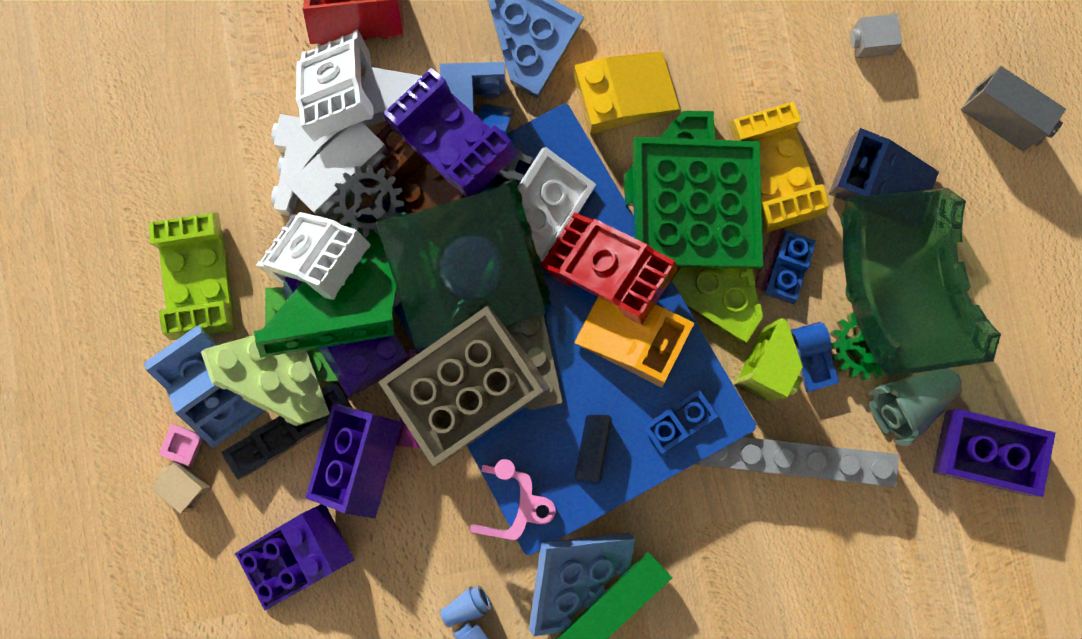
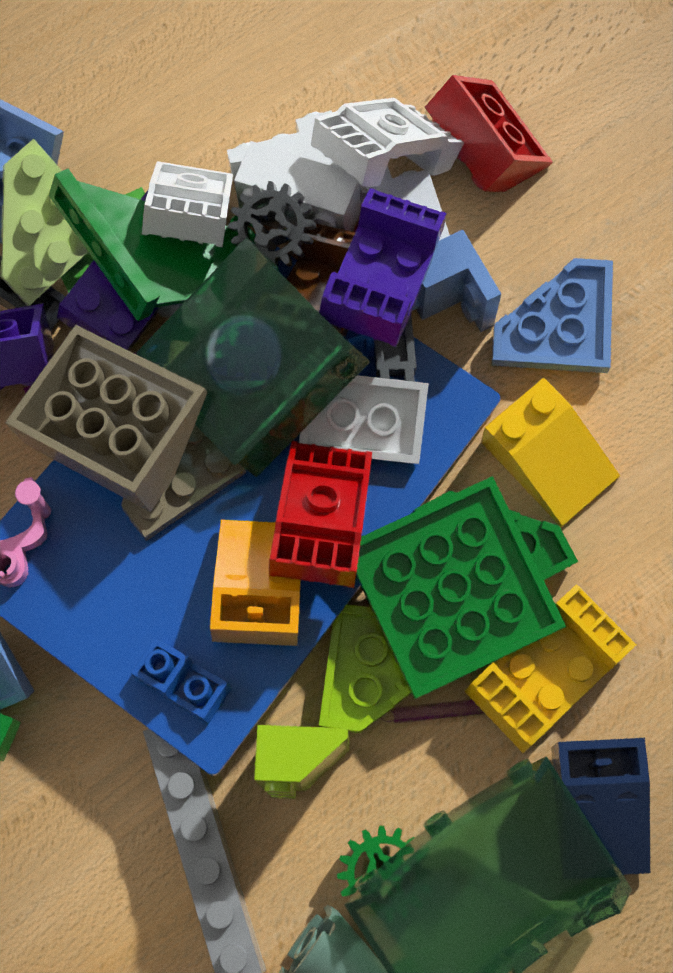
camera: 70 degrees right, 10 degrees down
(193, 275) = (123, 114): lime plate -> none
(497, 116) = (436, 324): blue slope -> none
(593, 448) = (105, 597): black slope -> none
(789, 267) = (437, 740): blue slope -> none
(814, 352) = (340, 816): blue plate -> none

